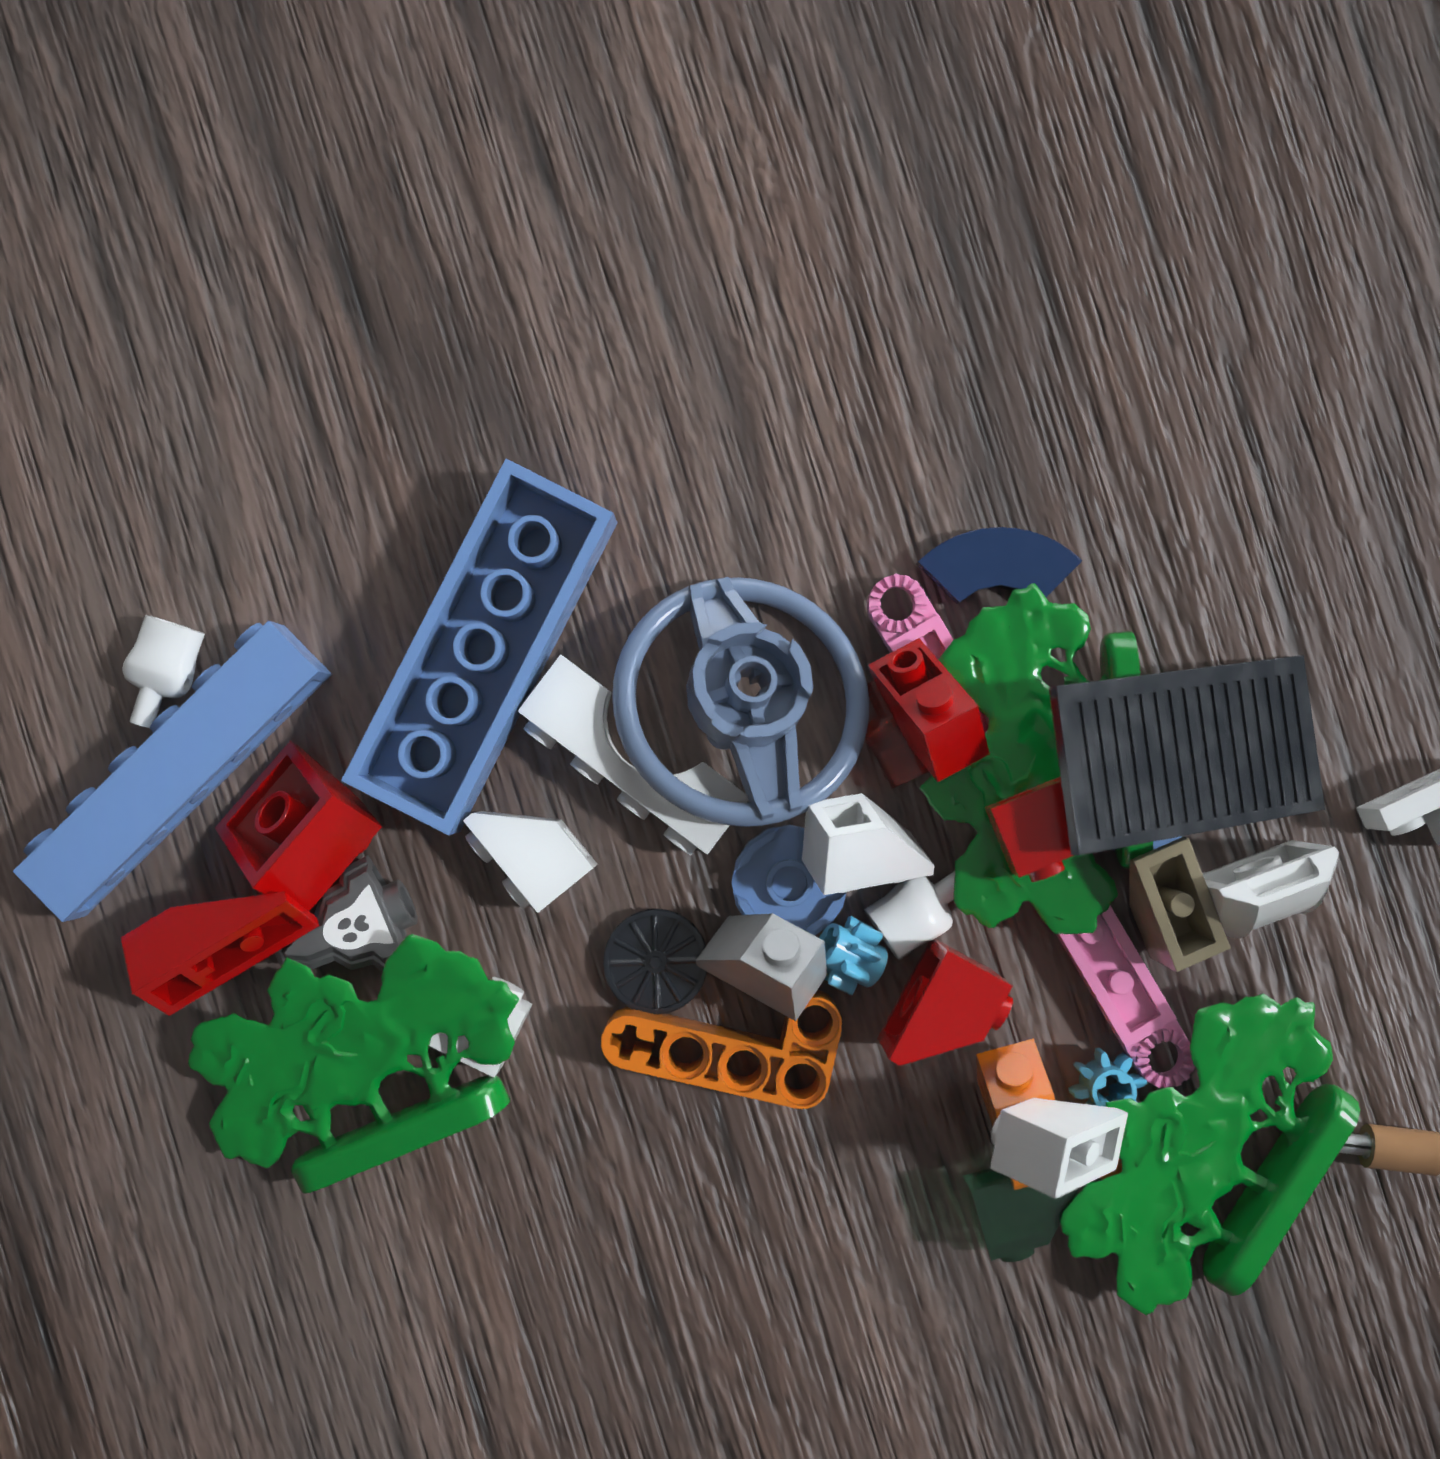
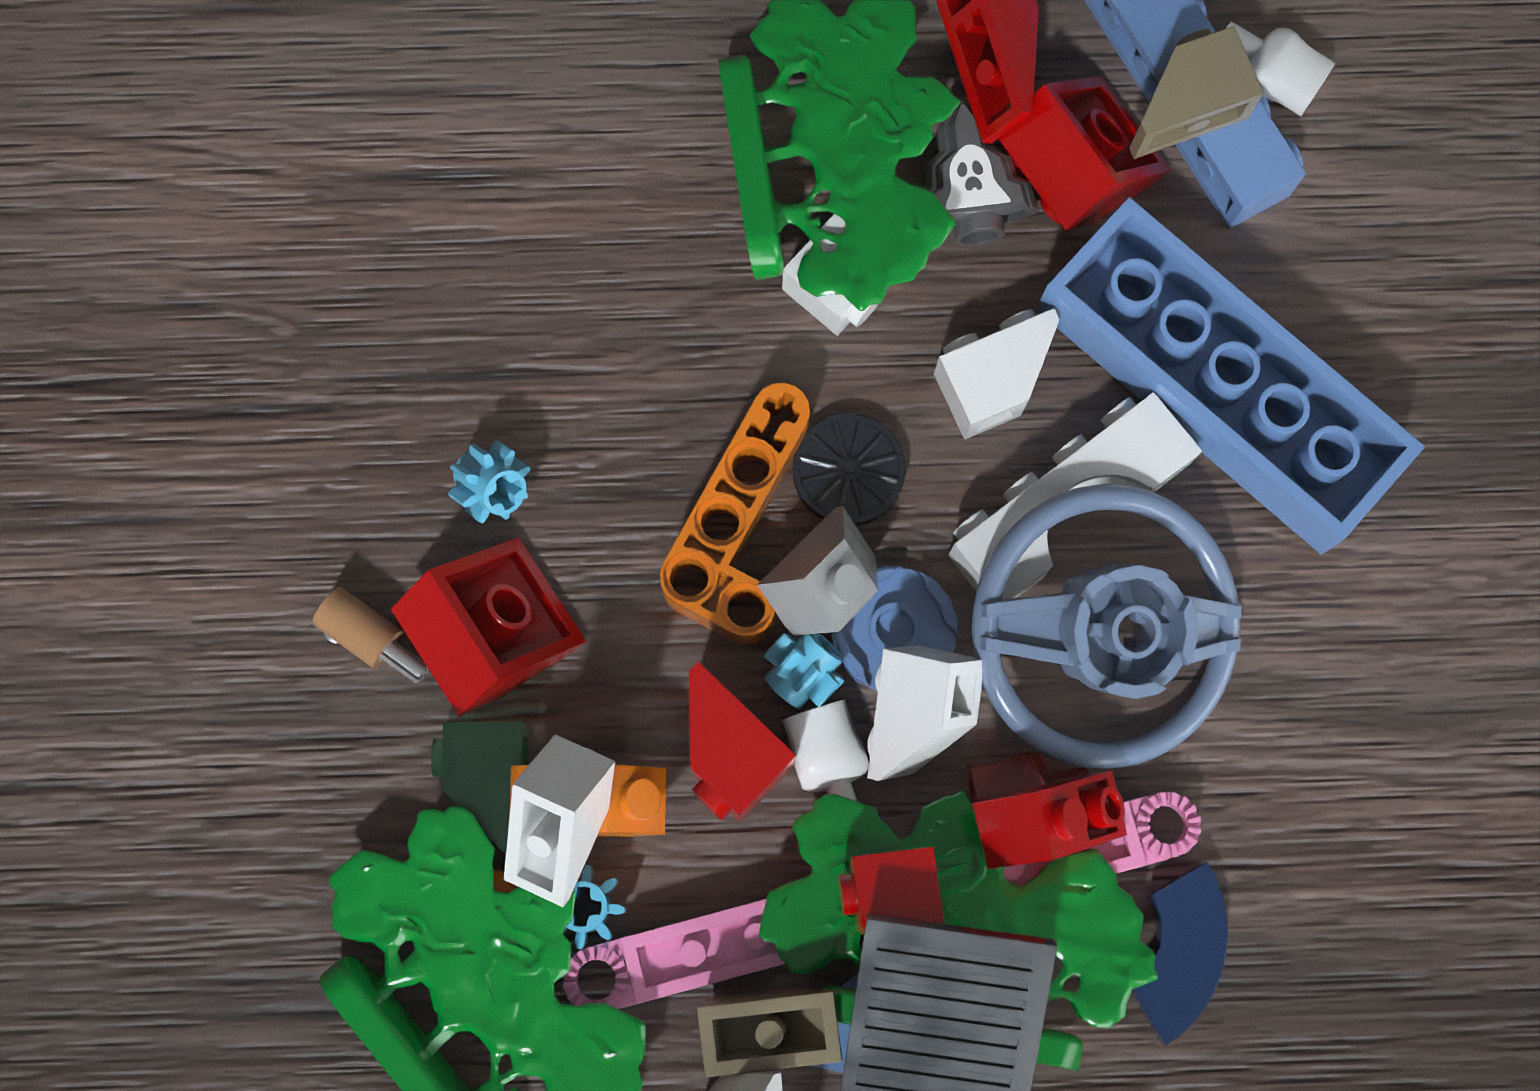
camera: 105 degrees right, 10 degrees down
(219, 743) = (1200, 91): none -> dark tan slope
(761, 1282) = (489, 481): none -> medium azure gear
(887, 1244) = (486, 624): none -> red slope
(924, 1347) = (366, 634): none -> medium nougat piece

